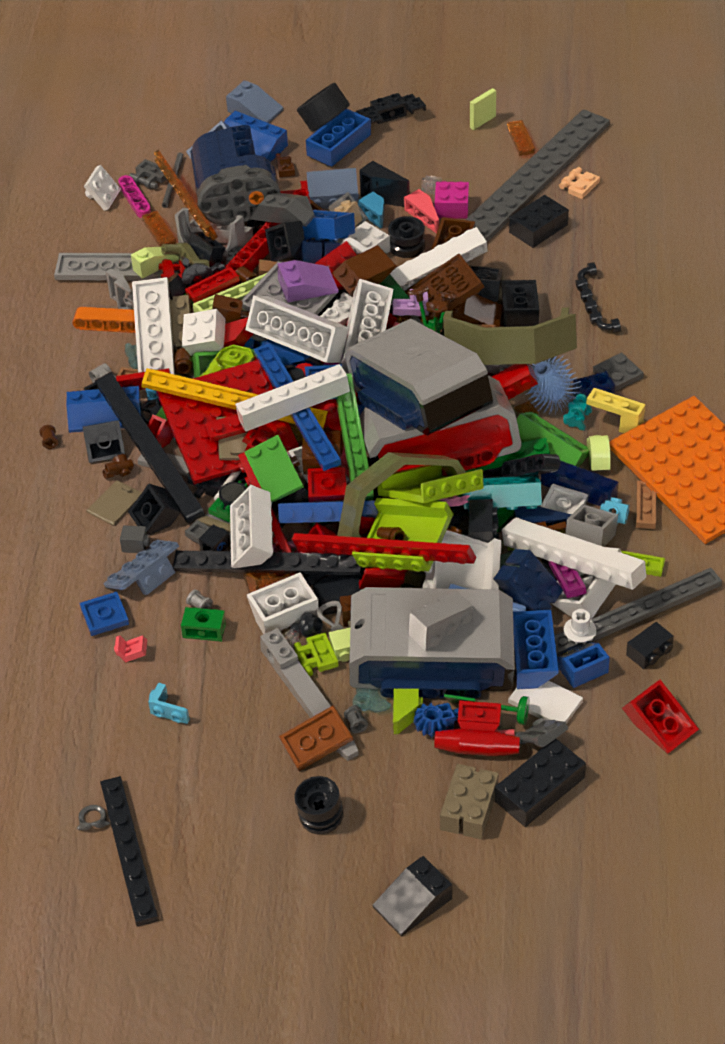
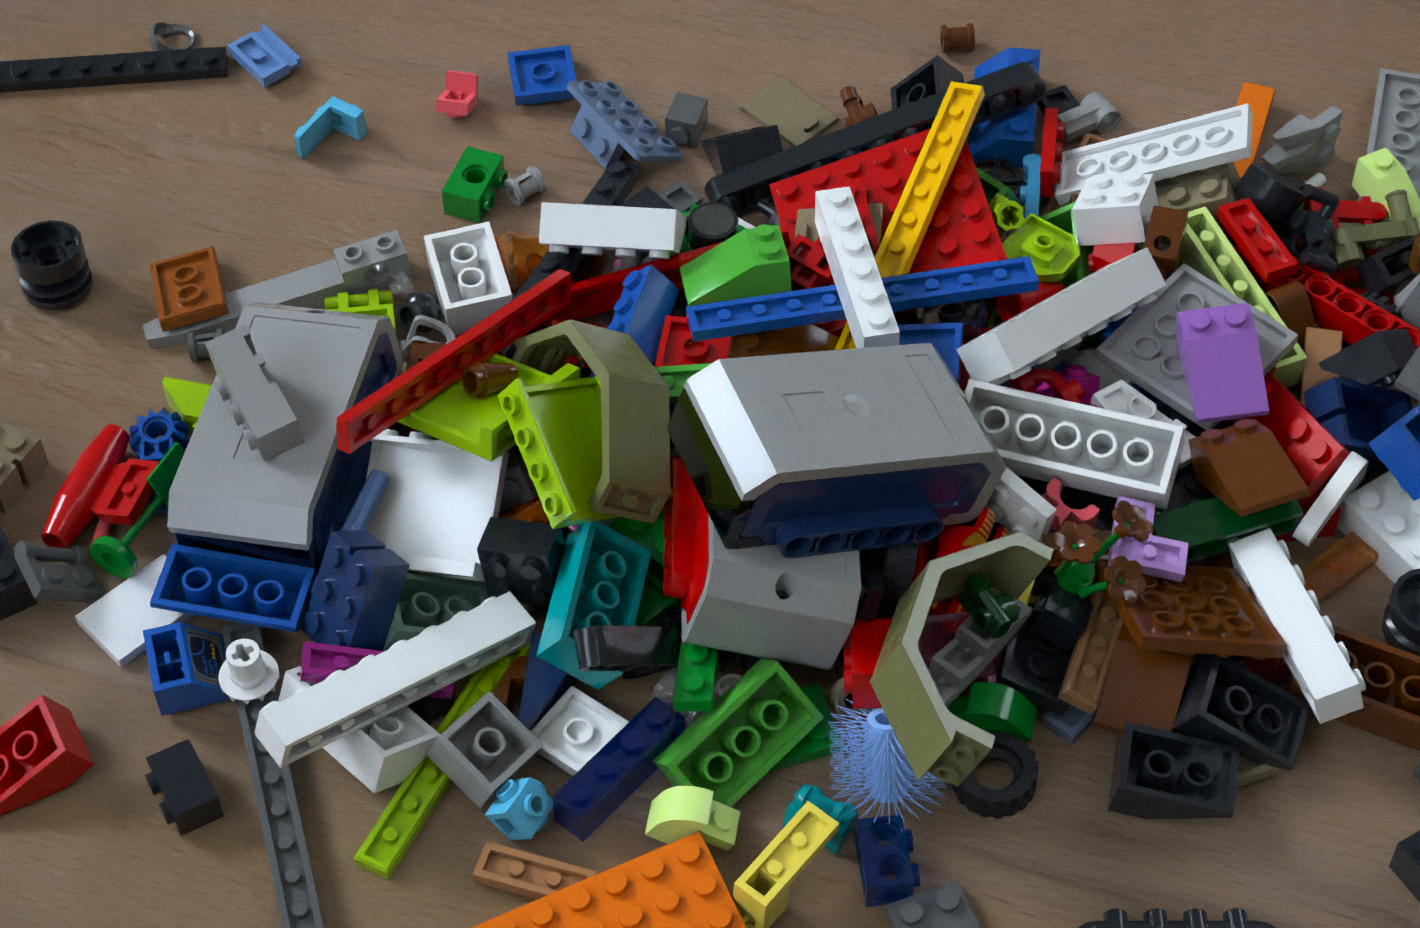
camera: 100 degrees right, 5 degrees up
(106, 758) = (264, 56): none -> medium blue plate

